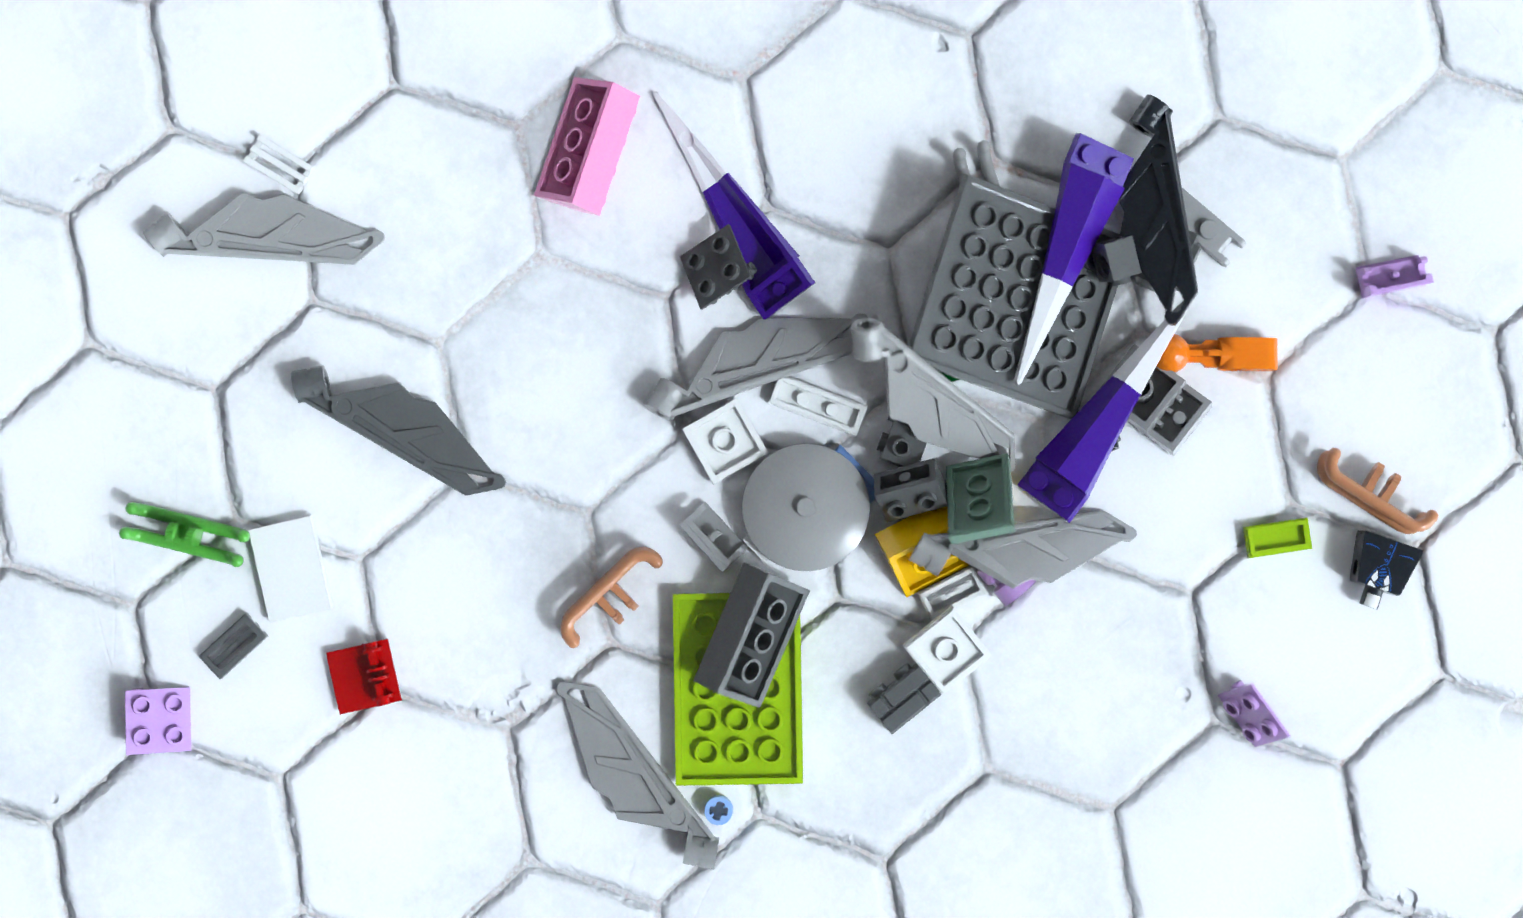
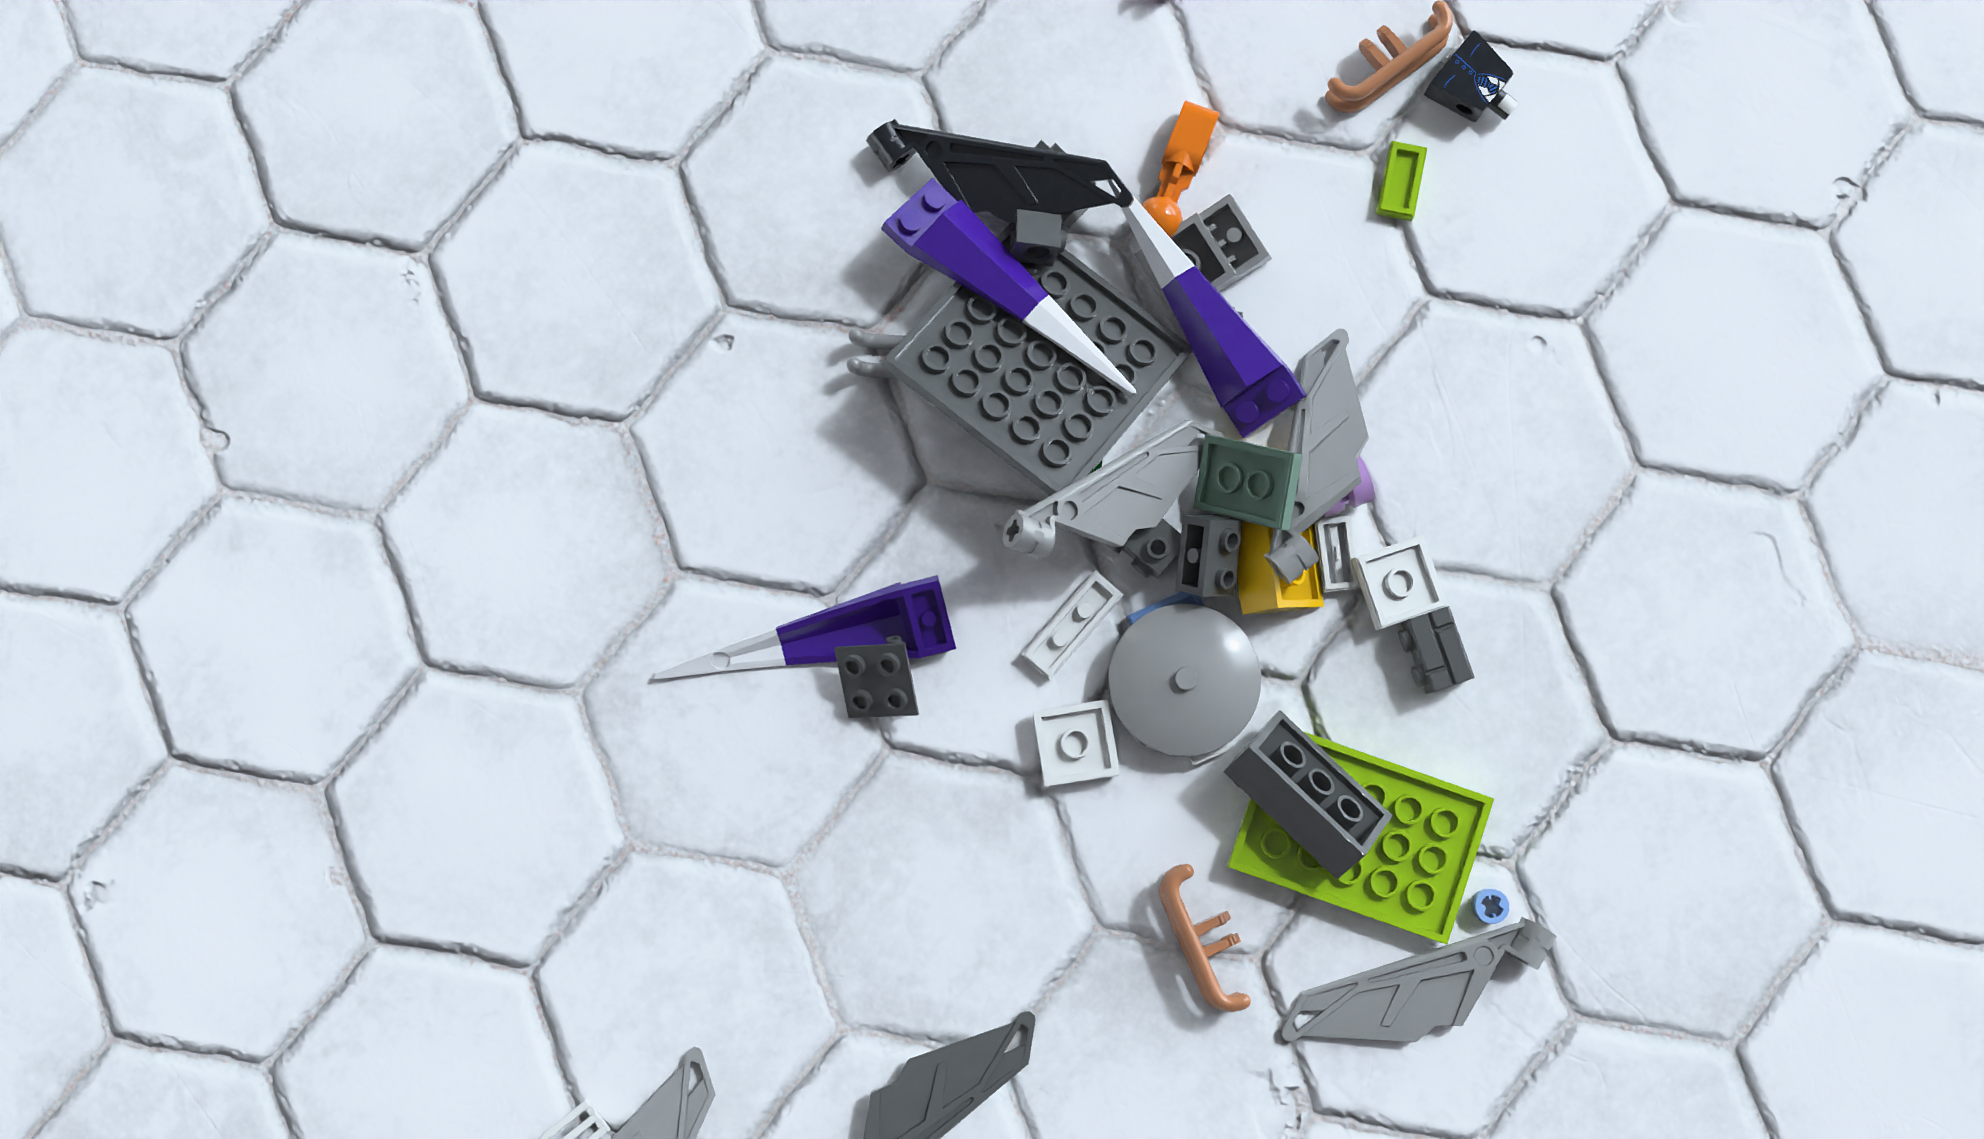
camera: 70 degrees left, 5 degrees down
(587, 145) = (683, 774): bright pink slope -> none
(713, 536) = (1179, 796): light grey hinge -> none
(754, 358) = (995, 674): light grey wing -> none
(1211, 231) = (1042, 125): light grey hinge -> none
(1253, 714) = (1588, 275): lavender hinge -> none

